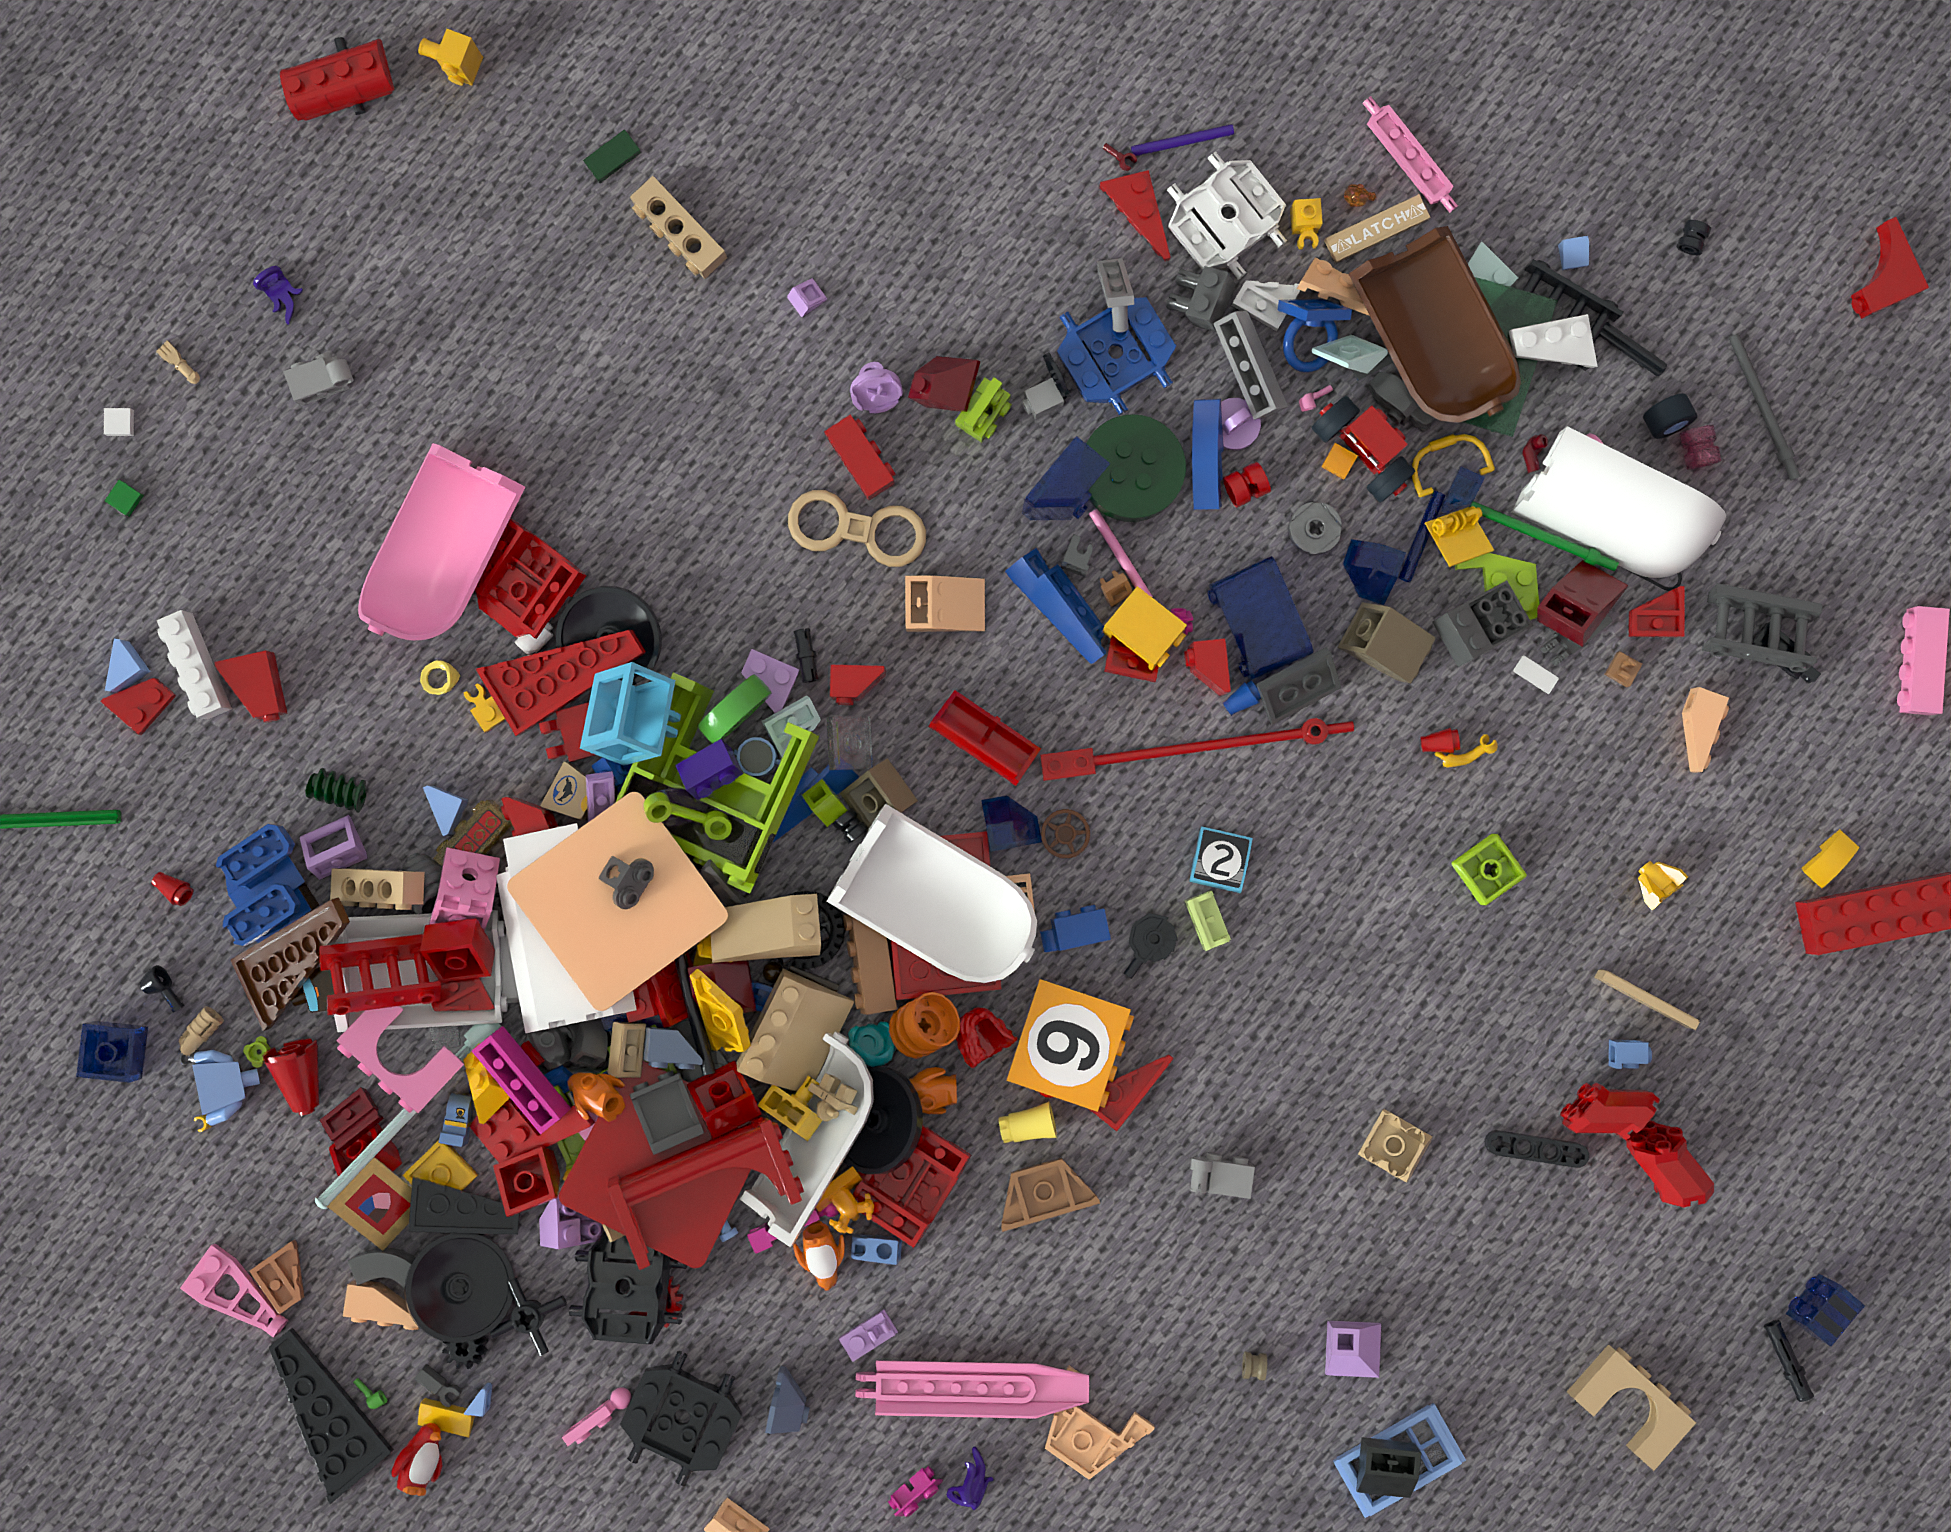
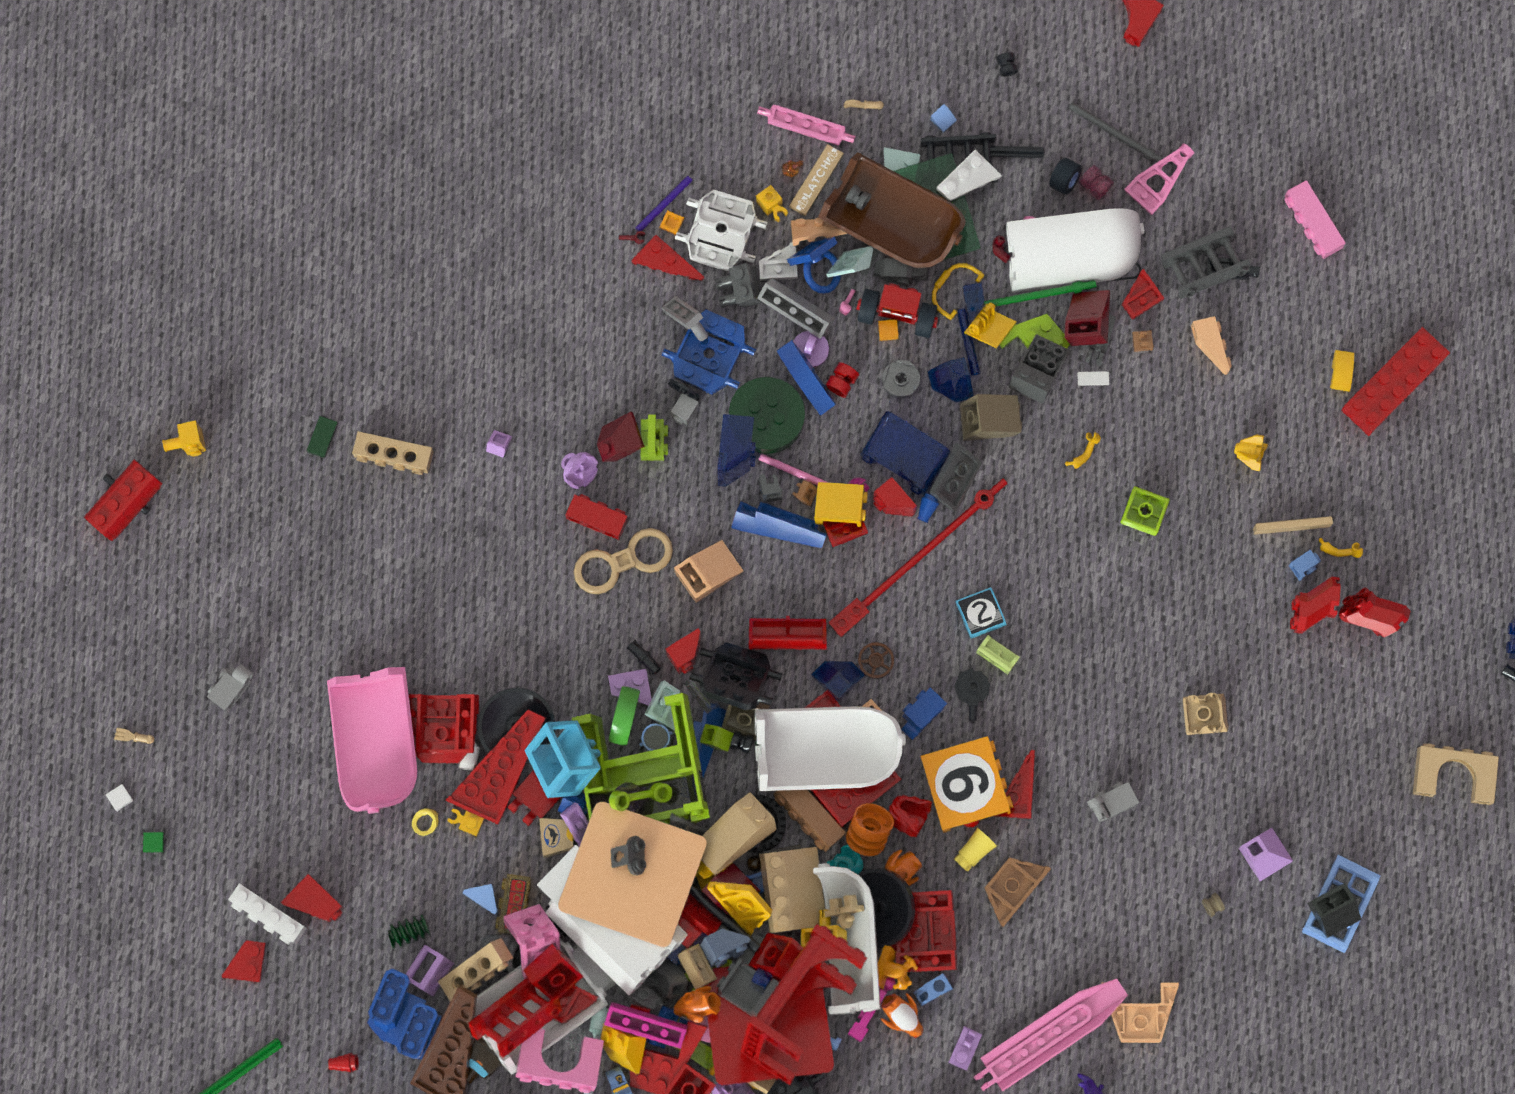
camera: 30 degrees left, 10 degrees down
(124, 667) = (224, 944): light blue slope -> none
(277, 287) = (166, 650): dark purple piece -> none
(527, 816) = (538, 865): red slope -> none
(688, 1113) = (761, 978): none -> clear blue hose
(709, 769) = (634, 759): dark purple brick -> none
(863, 747) = (717, 680): none -> black piece
(1176, 168) = (671, 222): none -> light orange tile
(1411, 281) = (858, 197): none -> dark grey wheel
(1441, 741) = (1064, 454): red cone -> none
(1484, 167) = (866, 104): none -> tan piece
(1536, 1149) = (1290, 658): black beam -> none
(1669, 1054) = (1355, 551): none -> yellow piece
(1746, 499) = (1144, 194): none -> bright pink plate

